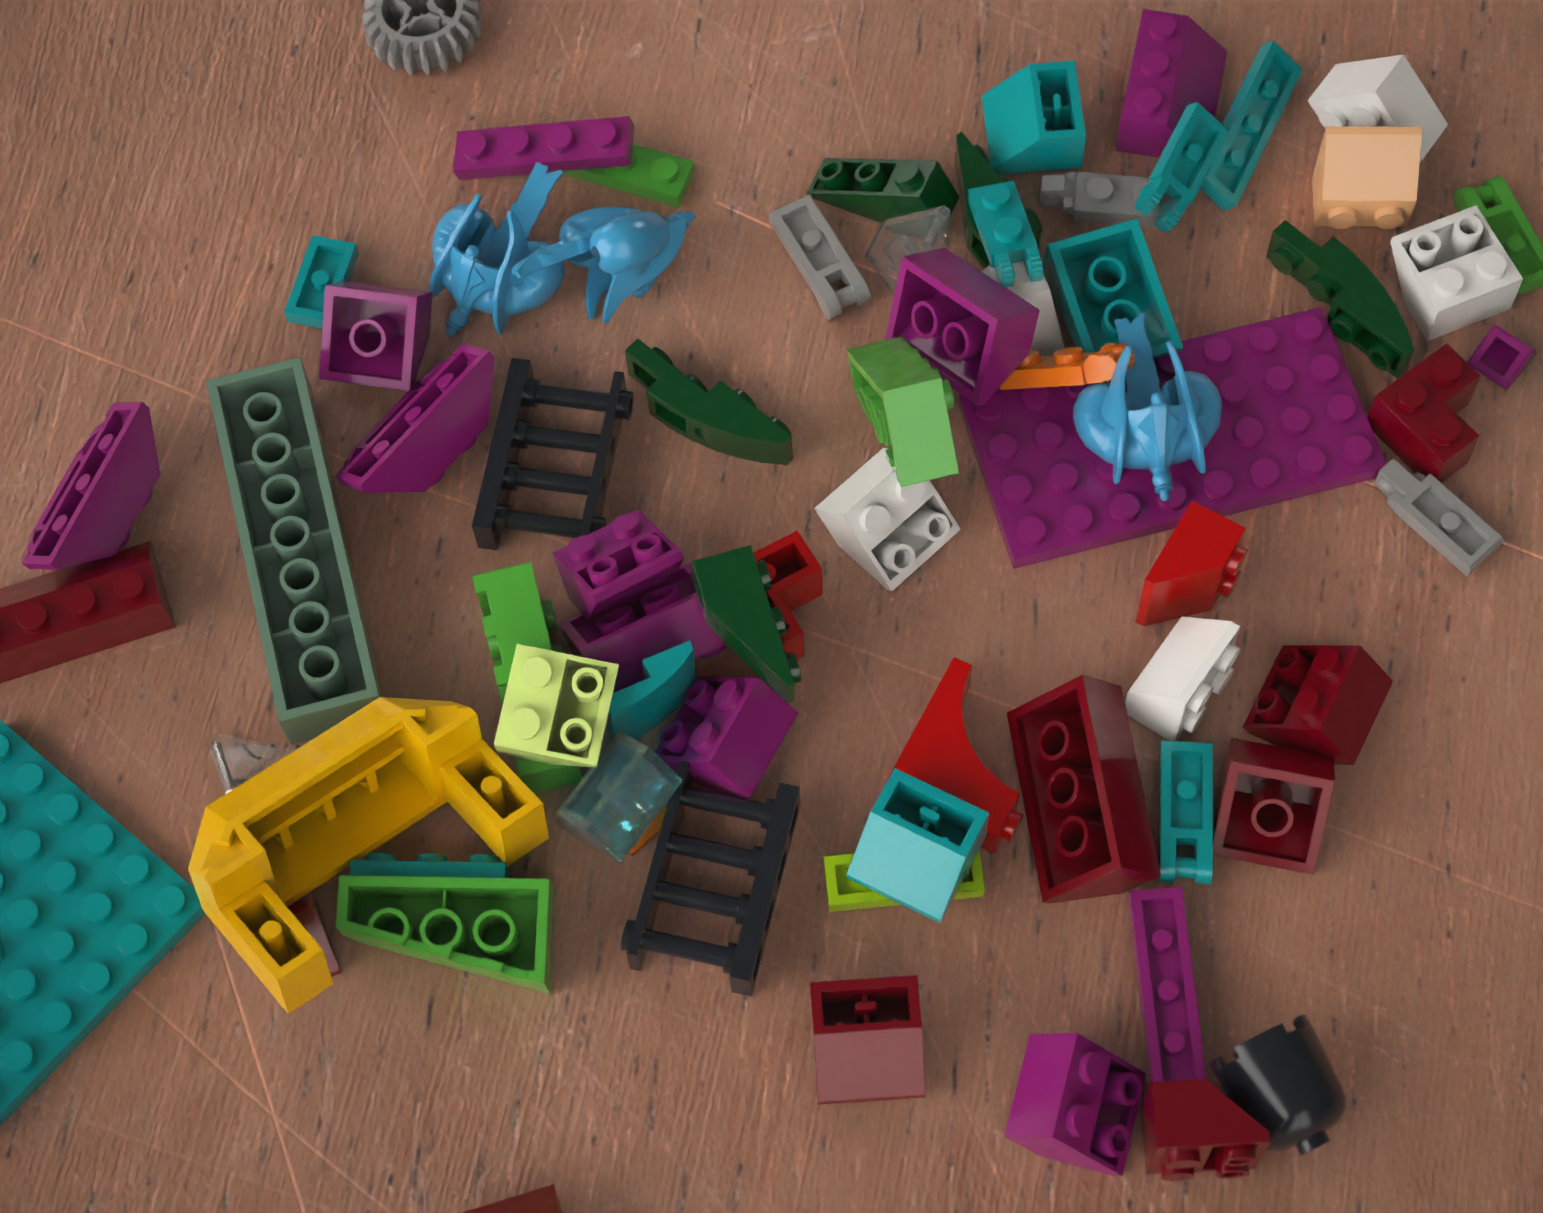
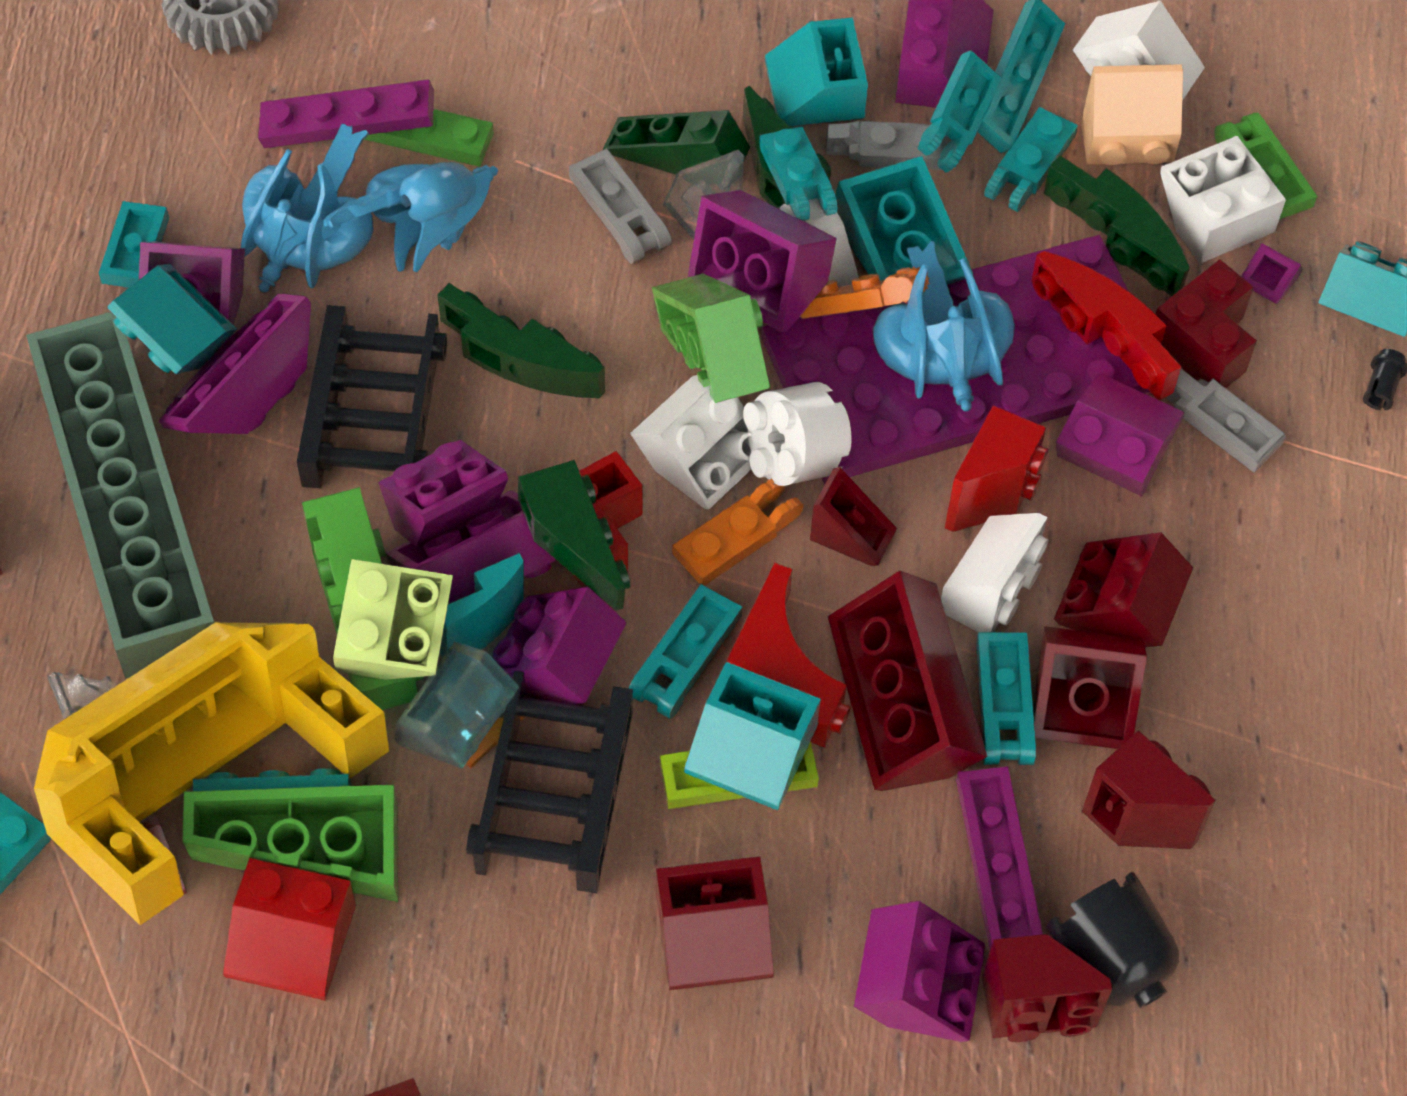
camera: 10 degrees left, 5 degrees down
(352, 370) = (171, 320): none -> teal slope
(438, 1019) = (288, 928): none -> red slope
(858, 743) = (686, 650): none -> teal plate
(917, 618) = (735, 533): none -> orange hinge
(986, 518) = (796, 433): none -> white brick
(1037, 613) = (850, 521): none -> dark red slope
(1255, 217) = (1030, 157): none -> teal hinge
(1315, 392) = (1102, 308): none -> red slope
(1323, 932) = (1147, 798): none -> dark red slope
(1325, 528) = (1118, 433): none -> magenta slope

